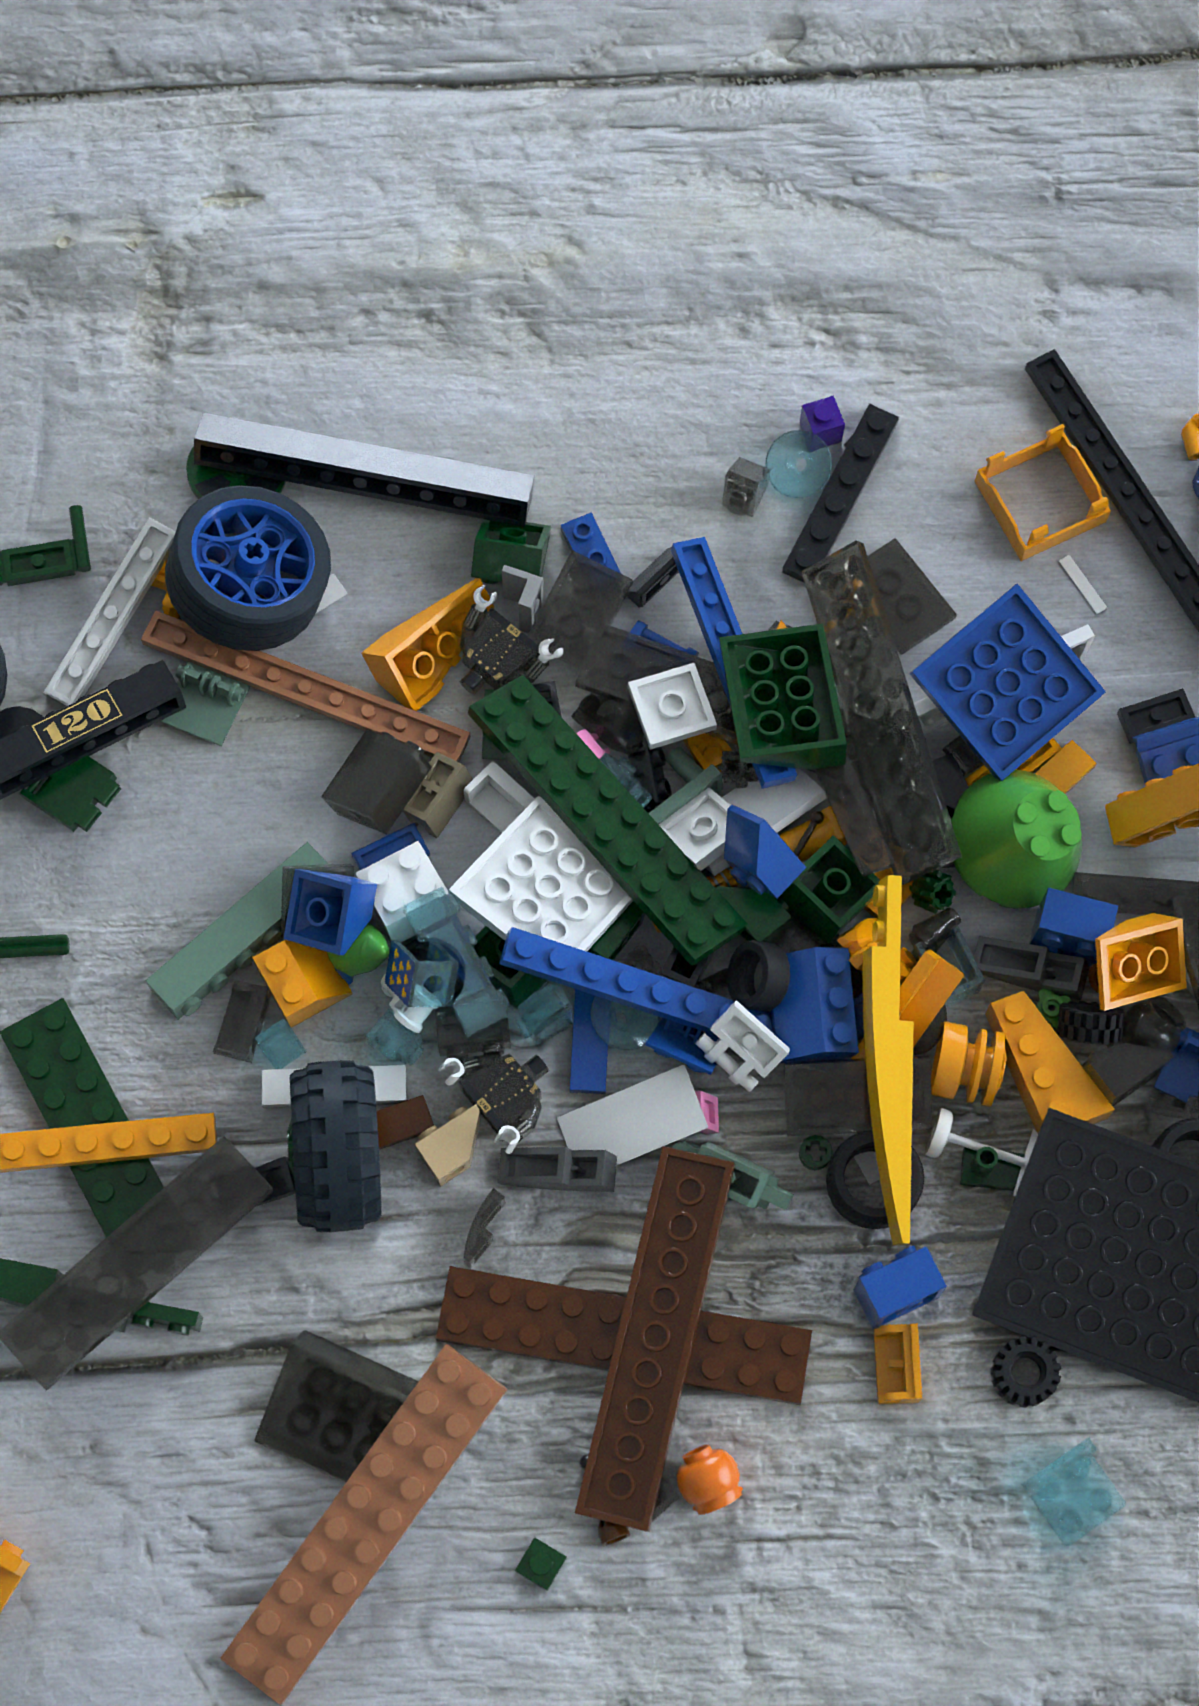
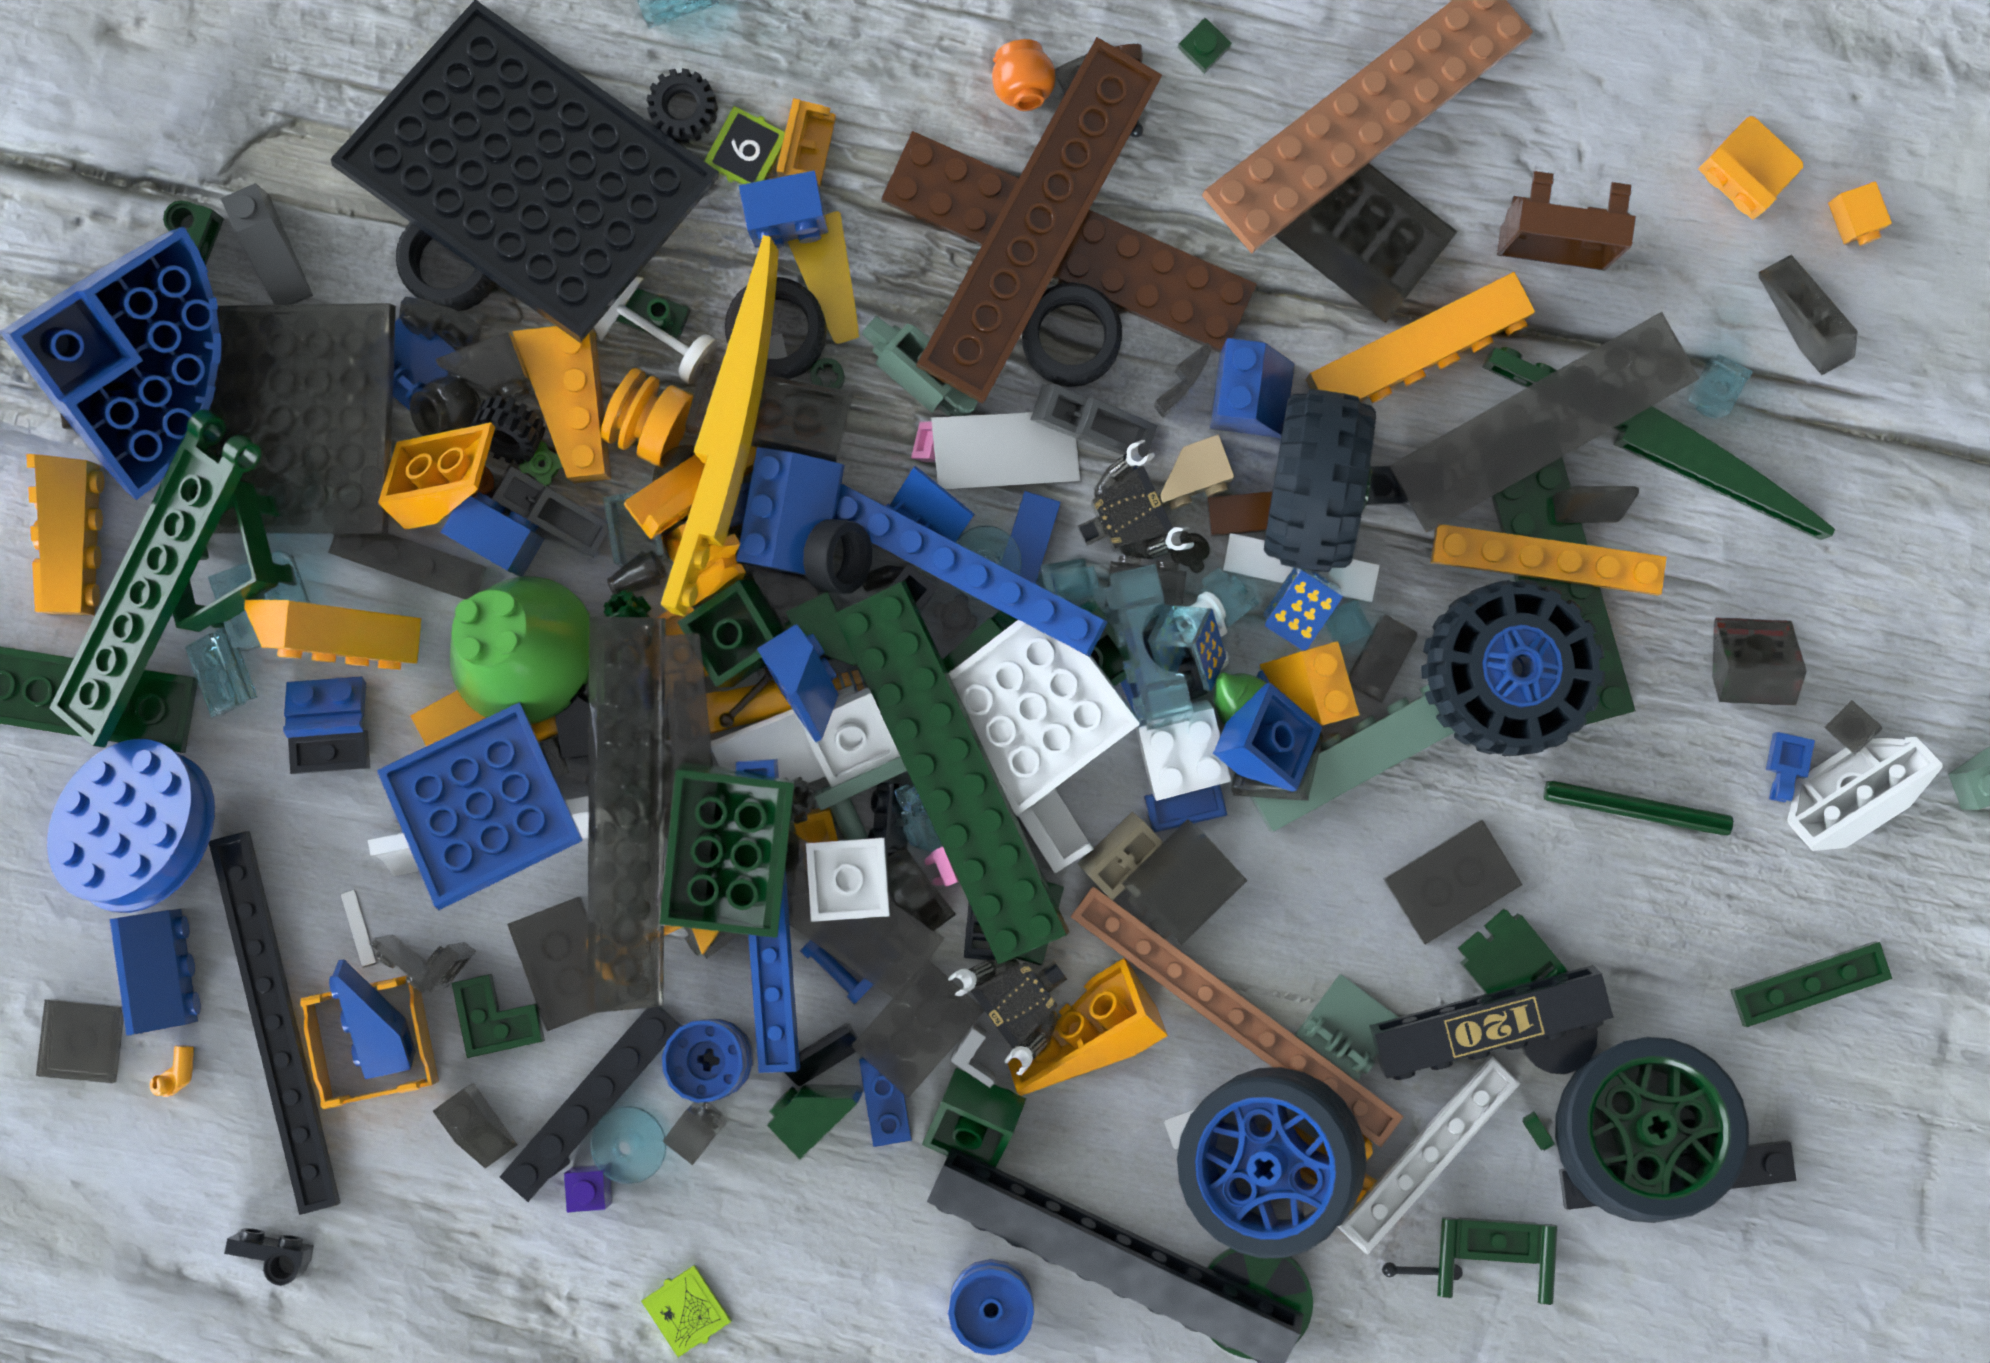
camera: 160 degrees left, 15 degrees up
(20, 656) = (1538, 1131): none -> dark green tile
(74, 1205) = (1593, 503): none -> clear smoke slope
(120, 1026) = (1550, 658): none -> black wheel
(126, 520) = (1390, 1270): none -> black hinge
(136, 847) = (1452, 881): none -> clear smoke tile
(146, 1444) = (1566, 233): none -> reddish brown piece
(266, 1316) = (1428, 342): none -> light orange brick
(325, 1036) = (1302, 606): none -> blue piece
(416, 1228) = (1251, 389): none -> blue slope
(431, 1080) = (1196, 555): none -> clear smoke plate
(458, 409) = (991, 1331): none -> blue wheel
(574, 1211) = (1099, 305): none -> black tyre
(649, 515) = (810, 1113): none -> dark green slope
(712, 355) = (686, 1310): none -> lime piece
(749, 1039) = (866, 488): white plate -> none
(762, 528) = (691, 1075): none -> blue wheel
(838, 1243) = (828, 278): none -> yellow sticker
(933, 451) = (475, 1126): none -> clear smoke slope
(946, 528) = (485, 1026): none -> dark green plate
(954, 1349) = (745, 148): none -> piece
(1021, 556) = (432, 974): none -> clear smoke bracket
(1039, 501) = (377, 1029): none -> blue slope
(1071, 318) = (253, 1245): none -> black plate

